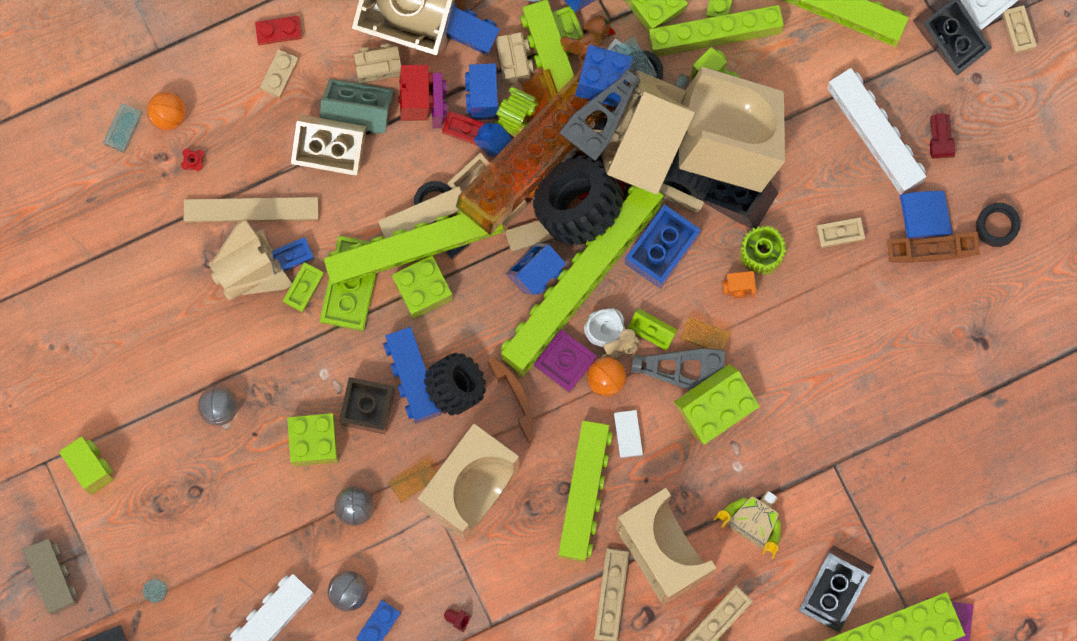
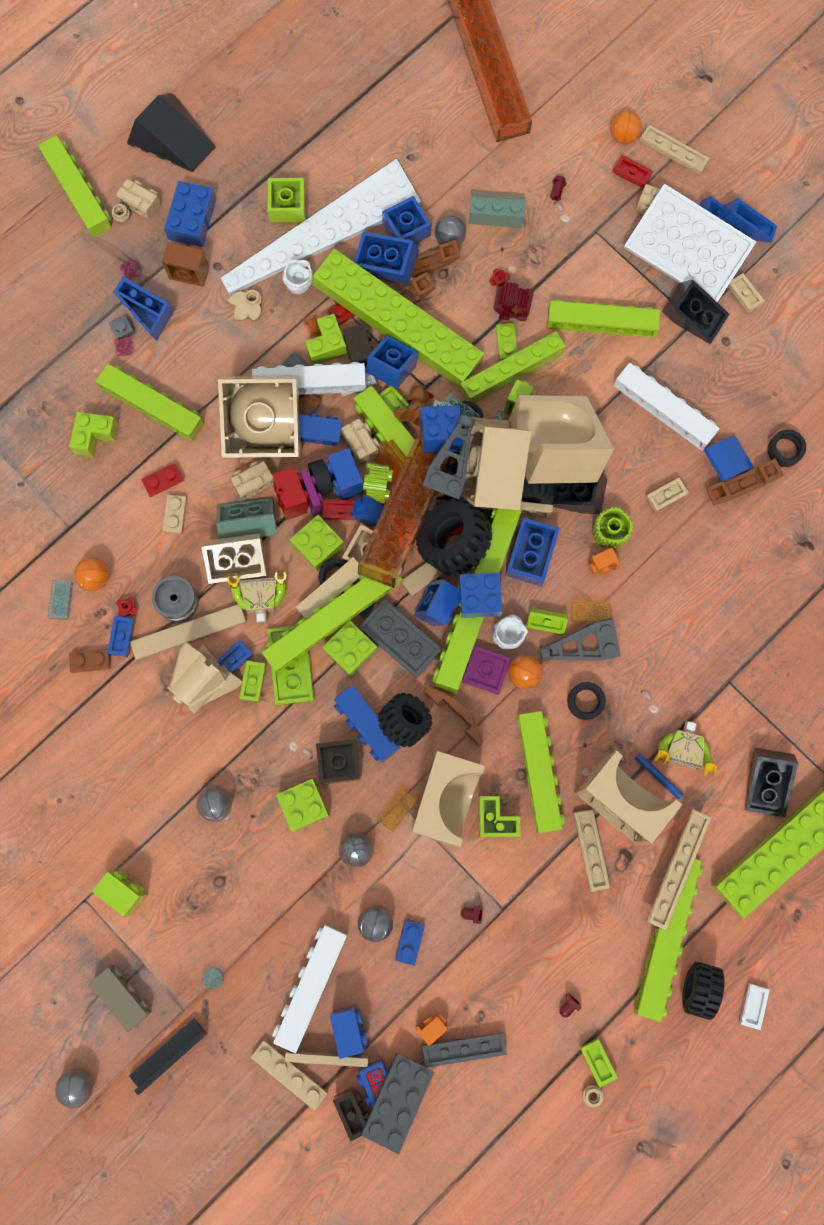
camera: 20 degrees left, 0 degrees up
(133, 206) = (89, 661): none -> dark orange plate
(176, 190) = (121, 636): none -> blue plate
(255, 180) = (165, 593): none -> flat silver wheel
(342, 194) = (259, 595): none -> torso
(426, 157) = (317, 543): none -> lime brick
(455, 85) = (322, 477): none -> black tyre
(481, 294) = (400, 638): none -> dark grey plate
(511, 528) = (490, 821): none -> lime brick
(582, 274) = (480, 595): none -> blue brick
(625, 344) = (531, 640): tan plate -> none
(628, 434) = (557, 712): white tile -> none
(664, 414) = (586, 686): none -> black tyre
(715, 540) = (659, 776): none -> blue bar
(716, 404) = (622, 664): lime brick -> none
(942, 143) = (719, 398): dark red piece -> none

